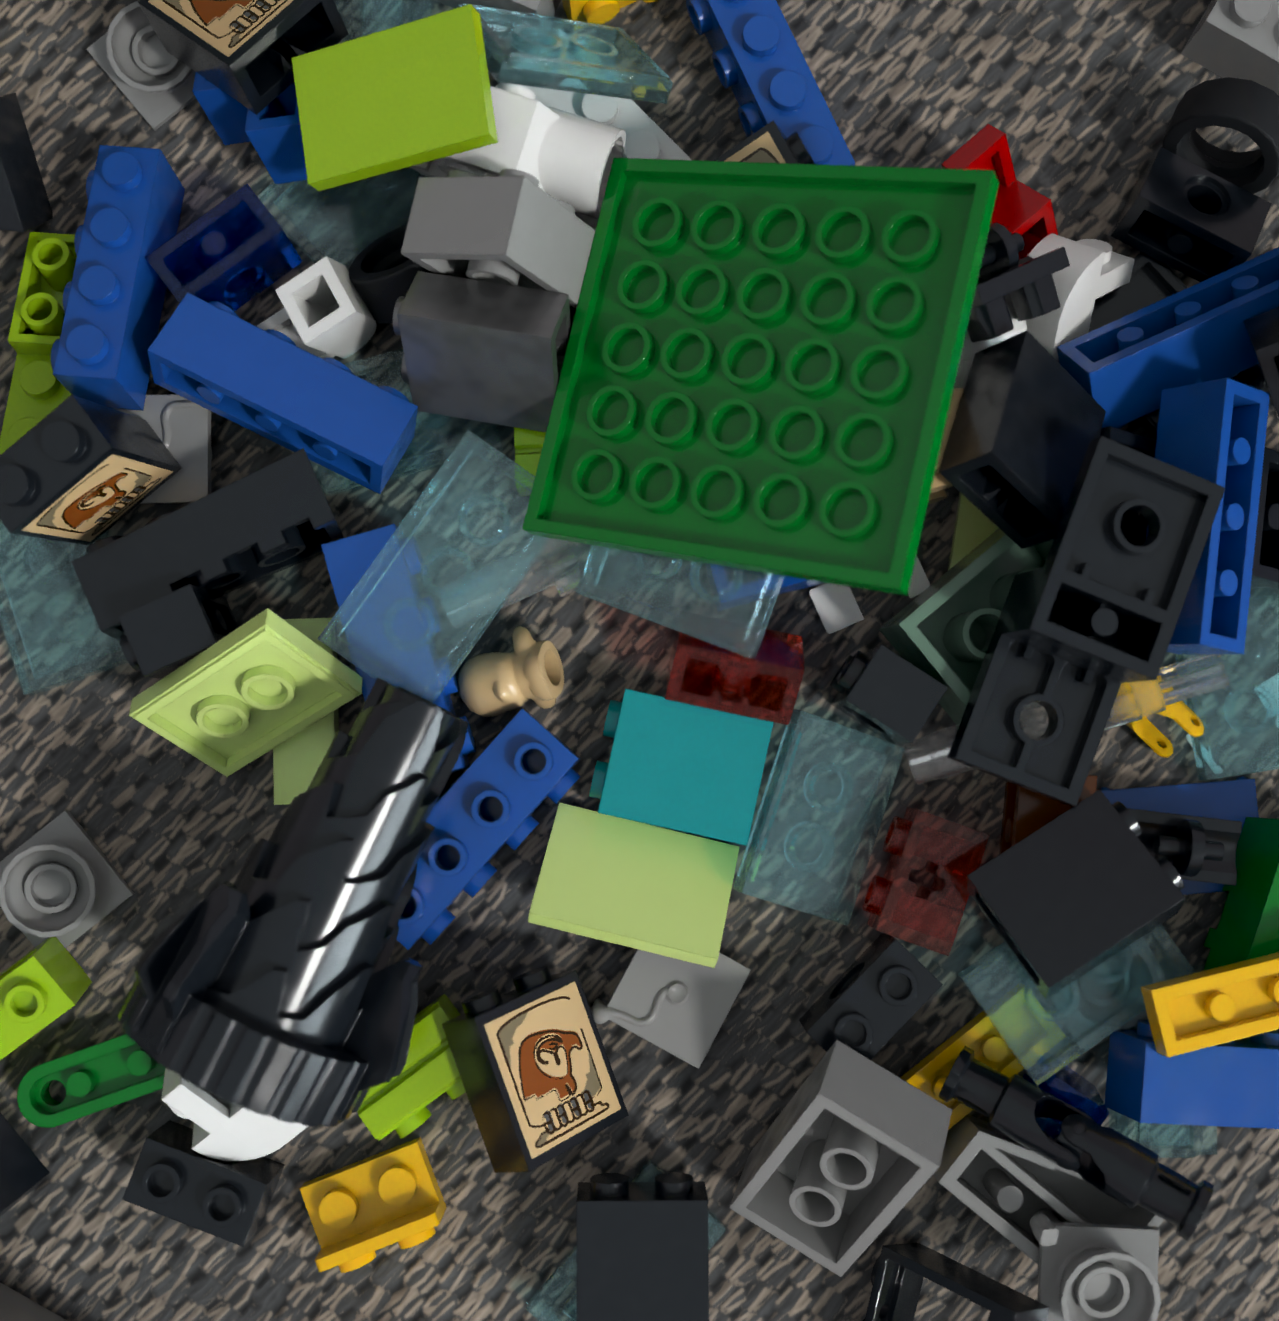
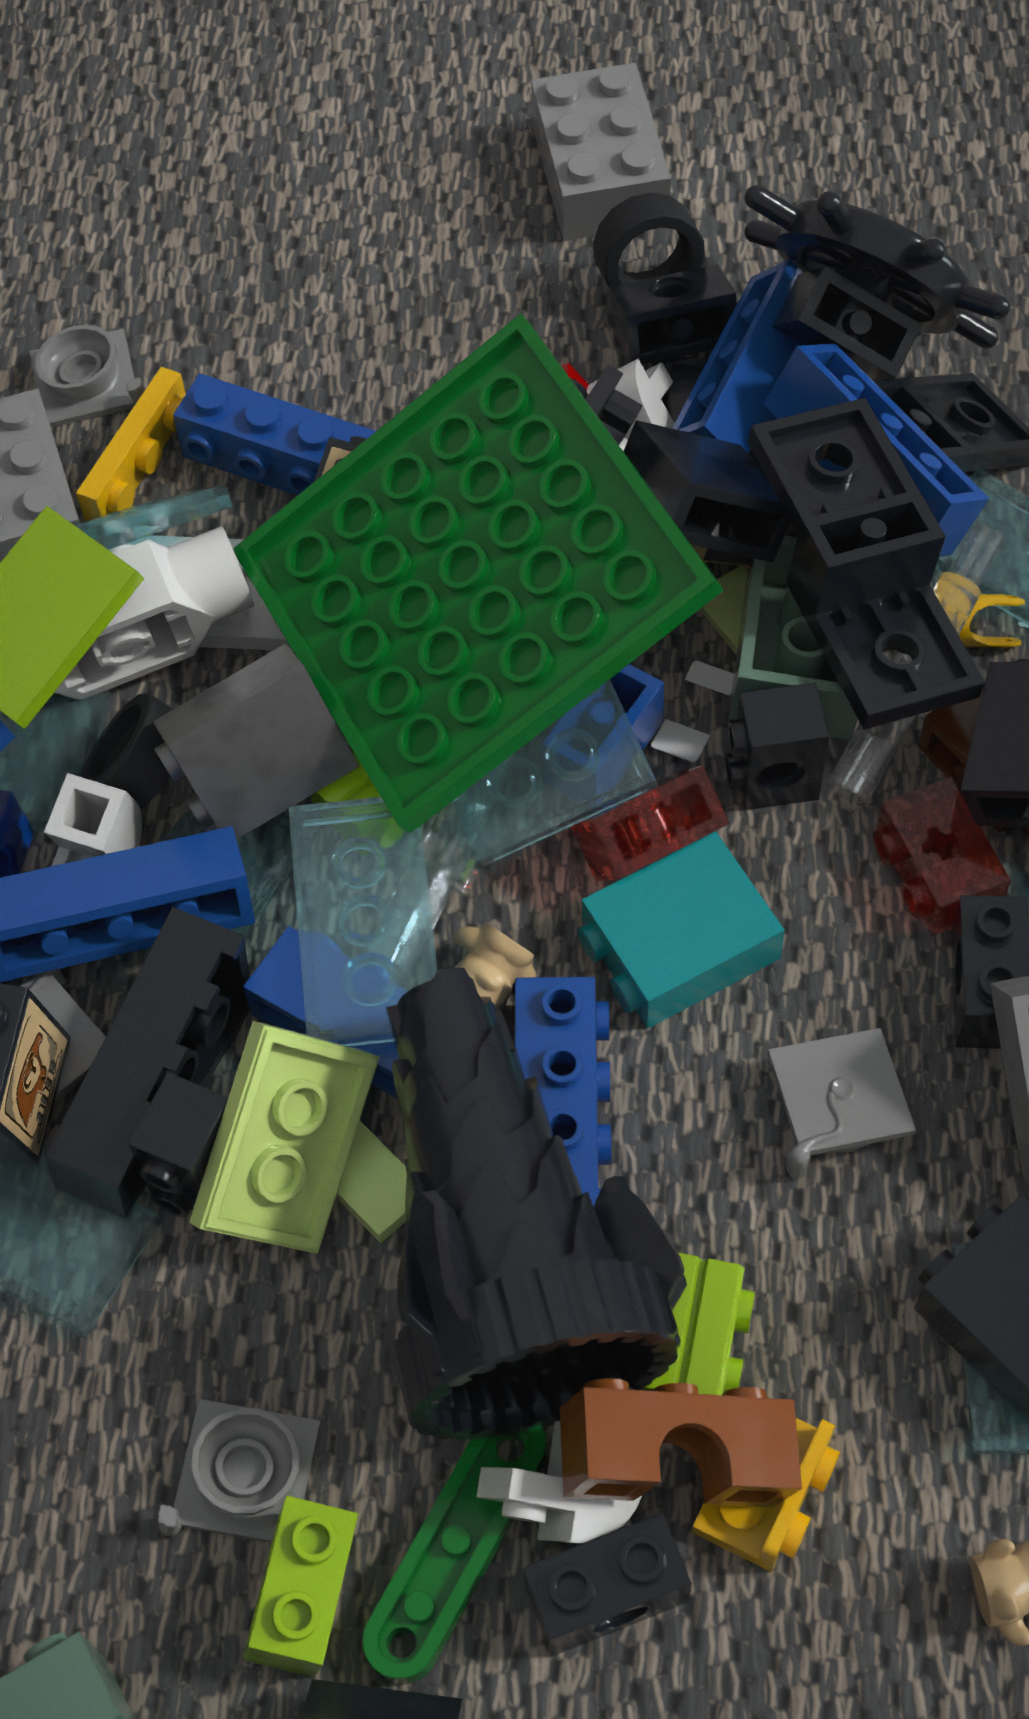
camera: 40 degrees left, 25 degrees down
(359, 1185) = (736, 1438): none -> dark orange arch
(498, 232) = (190, 642): light grey brick -> none
(534, 1069) = (787, 1230): brick -> none
(635, 885) = (729, 1039): yellowish green tile -> none
(819, 817) = (819, 880): clear light blue tile -> none

